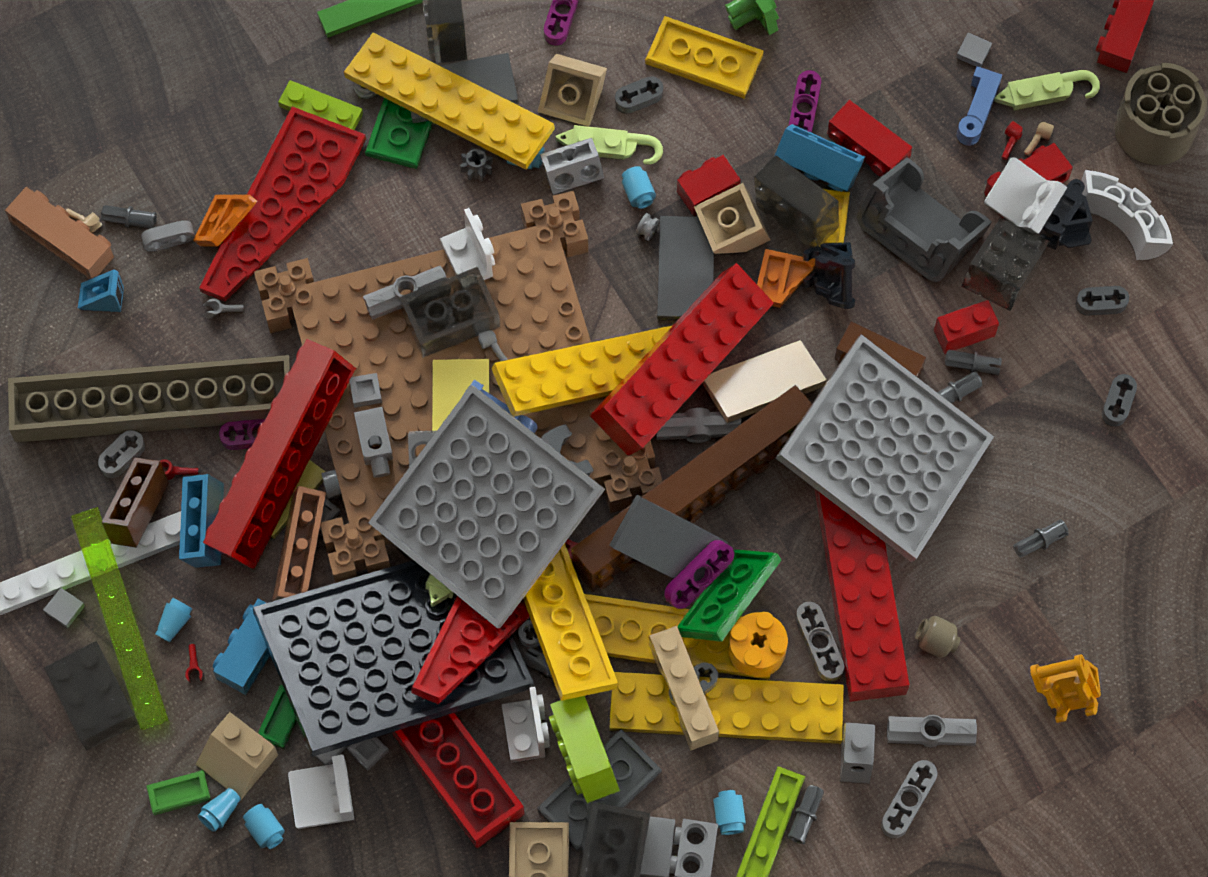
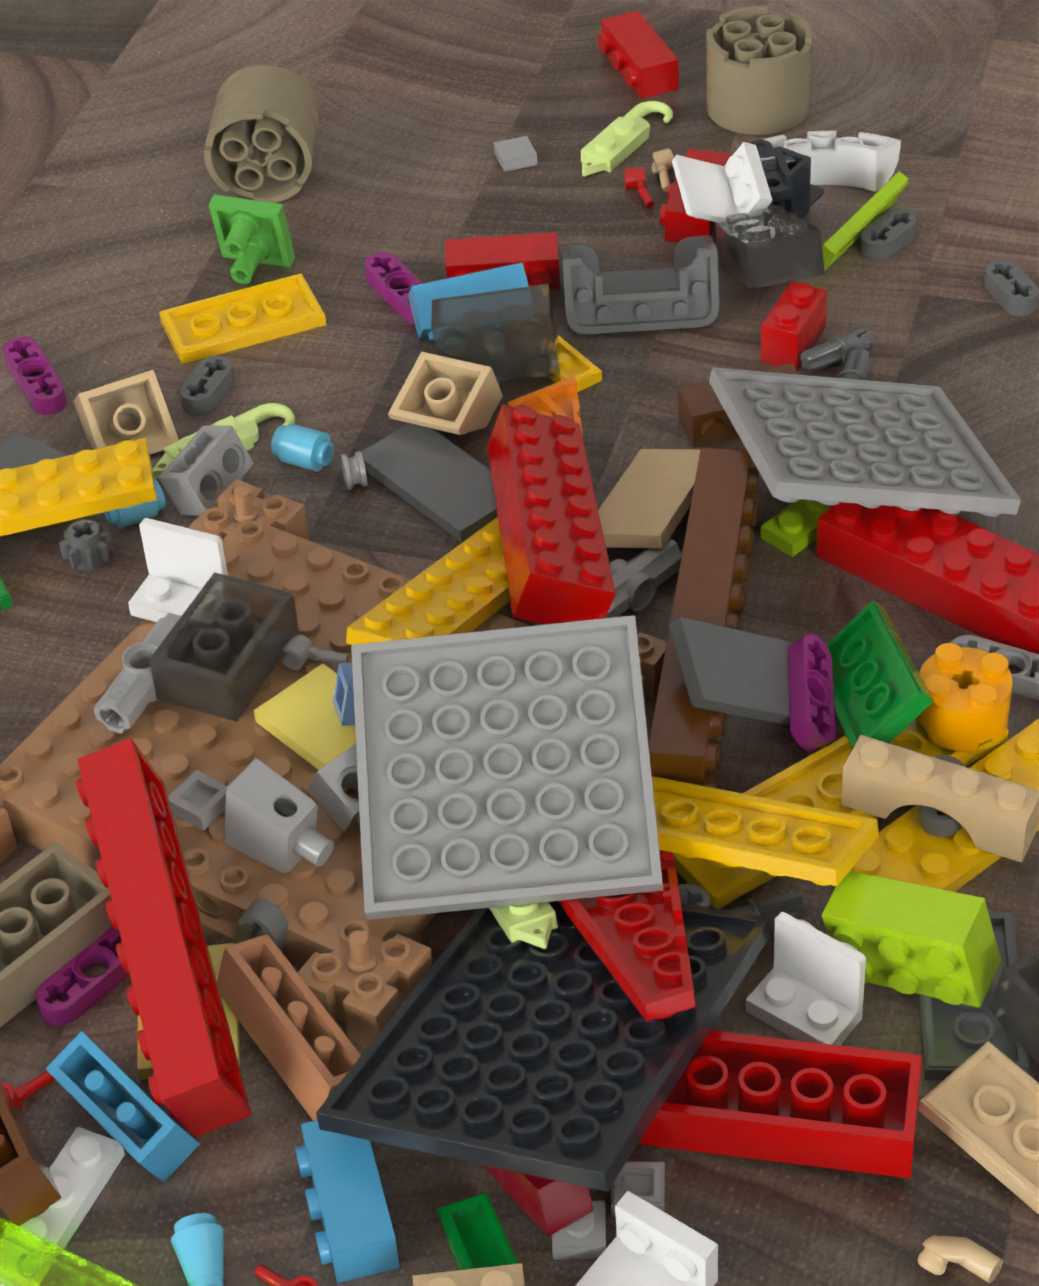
camera: 40 degrees left, 25 degrees down
(706, 182) = (372, 396): red brick -> none
(833, 273) = (602, 366): black piece -> none
(972, 125) = (576, 177): medium blue leg -> none
(1090, 281) = (865, 216): none -> lime tile

